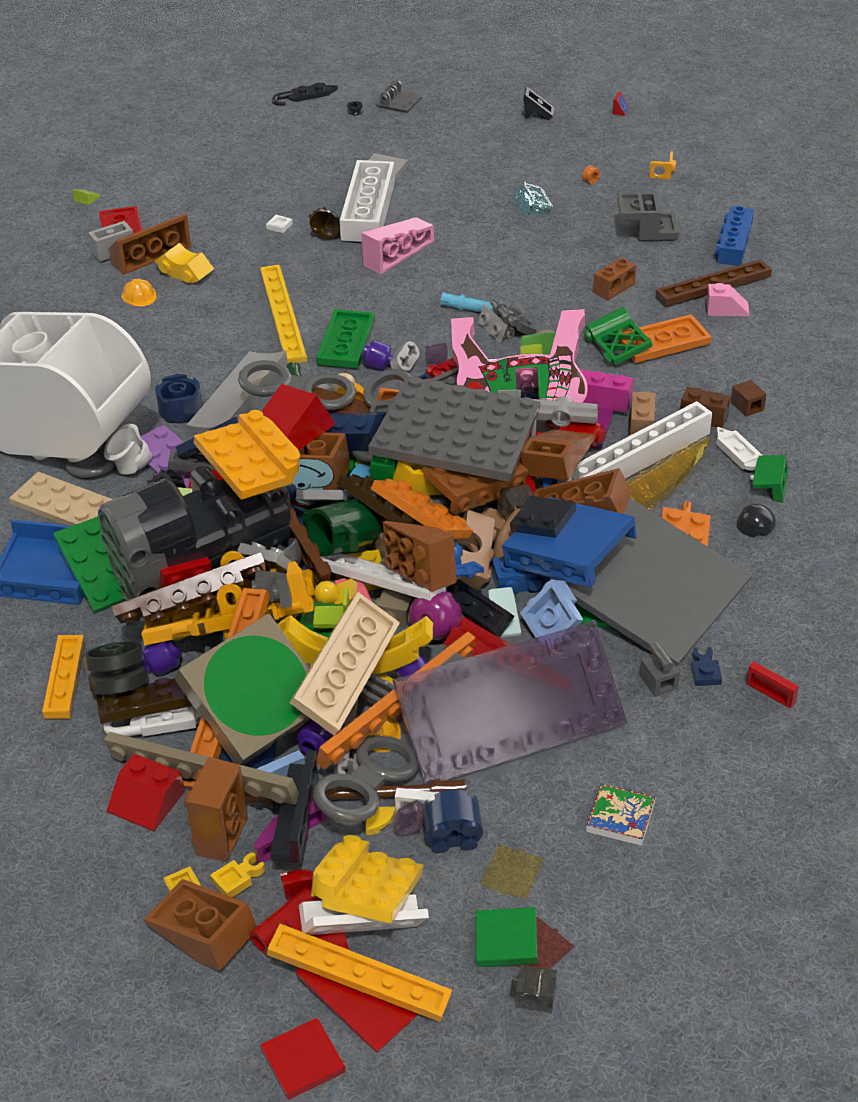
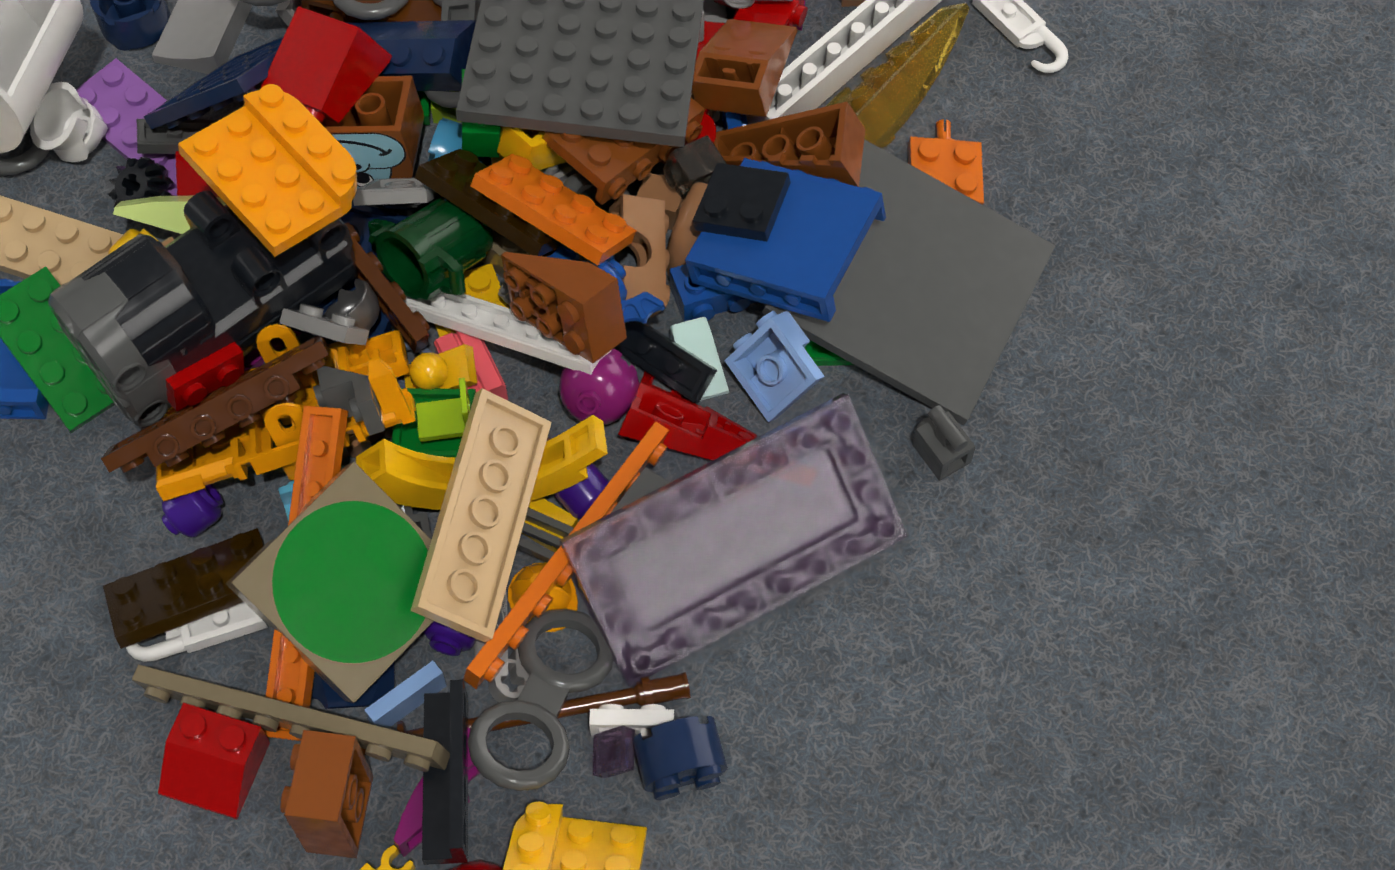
camera: 10 degrees left, 20 degrees up
(63, 677) = (46, 561): light orange plate -> none
(115, 667) = (125, 546): pearl dark grey wheel -> none
(381, 819) = (578, 752): yellow tile -> none
(396, 605) = (531, 377): dark tan brick -> none
(512, 872) = (776, 818): clear yellow piece -> none
(620, 814) = (918, 698): tile -> none
(705, 669) = (1008, 427): dark blue plate -> none
(756, 520) = (1049, 144): black hair -> none
(772, 473) = (1063, 58): green panel -> none
(772, 685) = (1108, 445): red tile -> none

